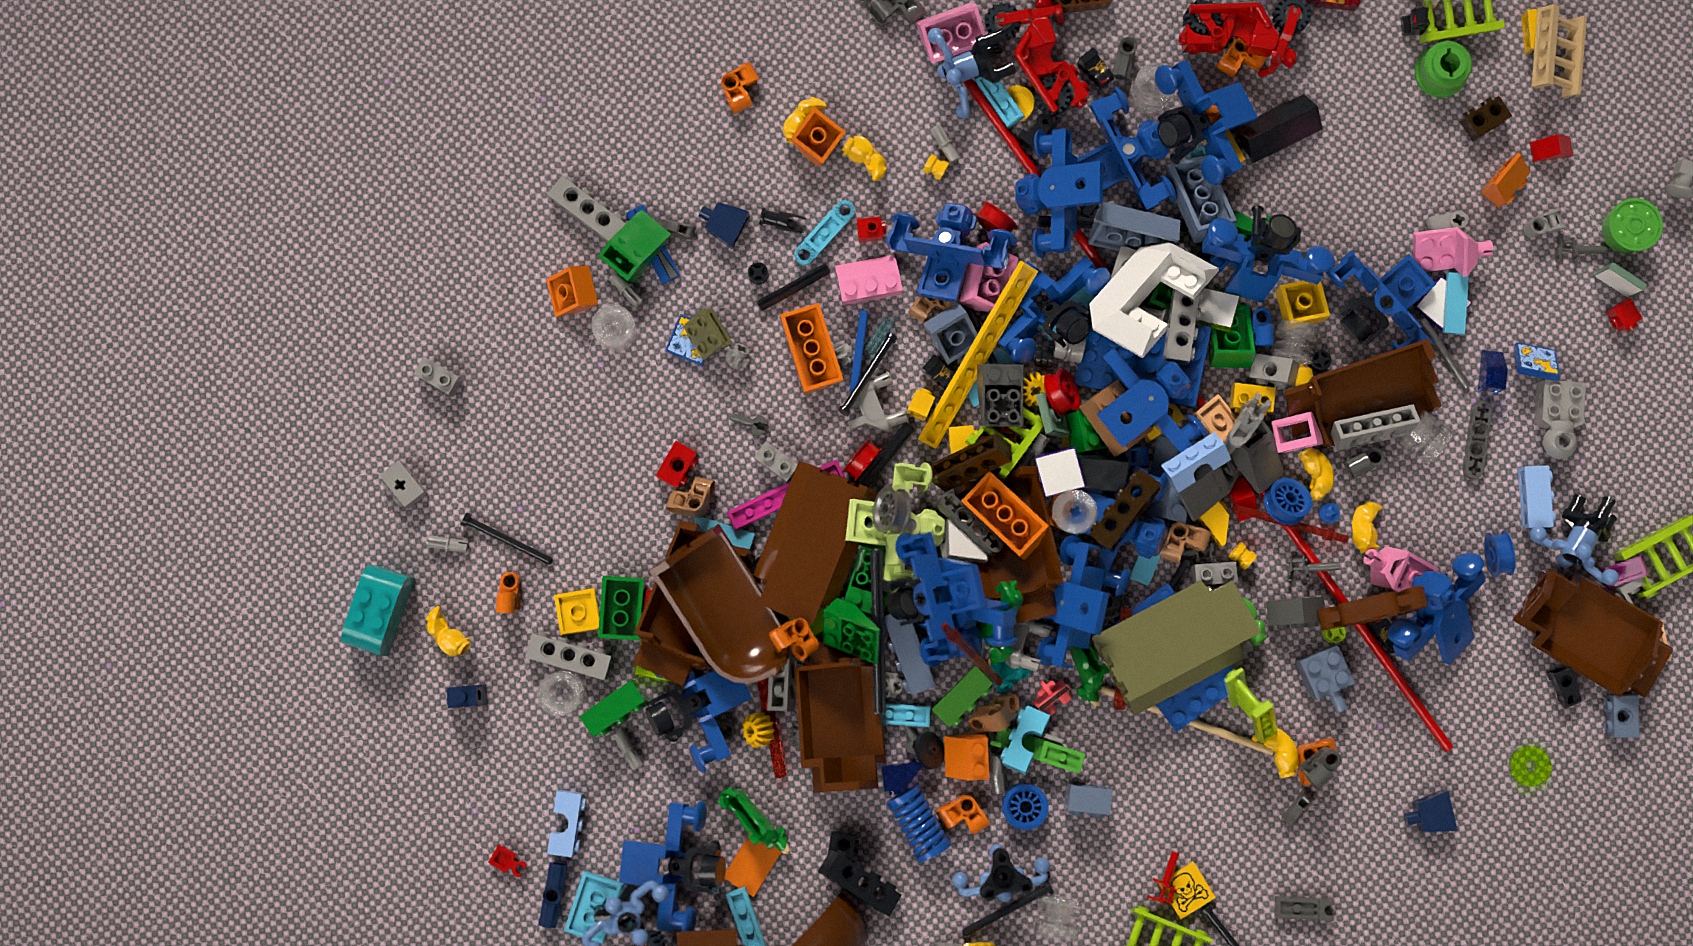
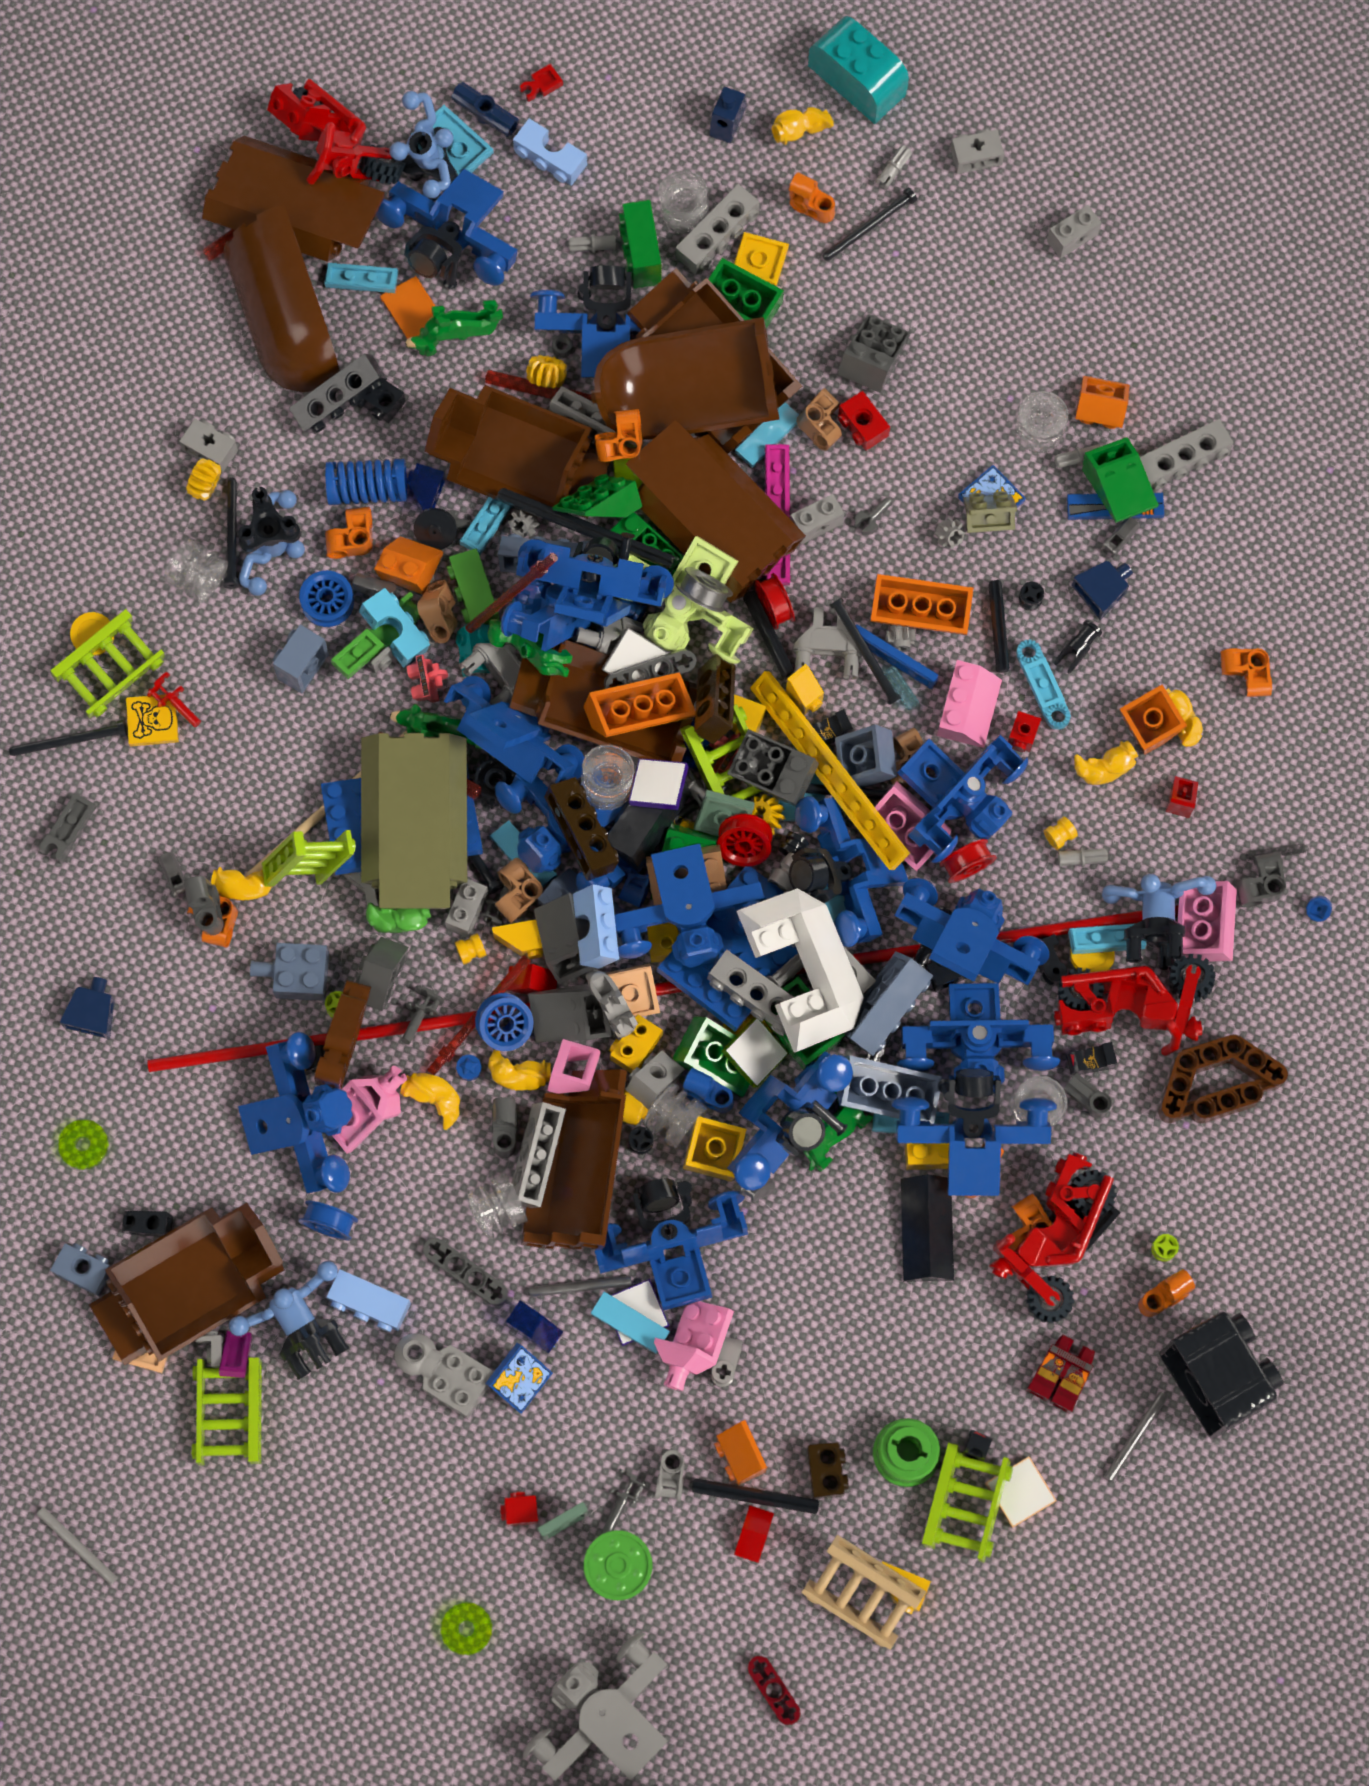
camera: 115 degrees right, 10 degrees down
(615, 484) = (873, 353): none -> dark grey slope
(861, 92) = (1182, 797): none -> red slope
(1523, 148) = (755, 1496): none -> black axle
(1658, 81) = (757, 1677): none -> dark red beam

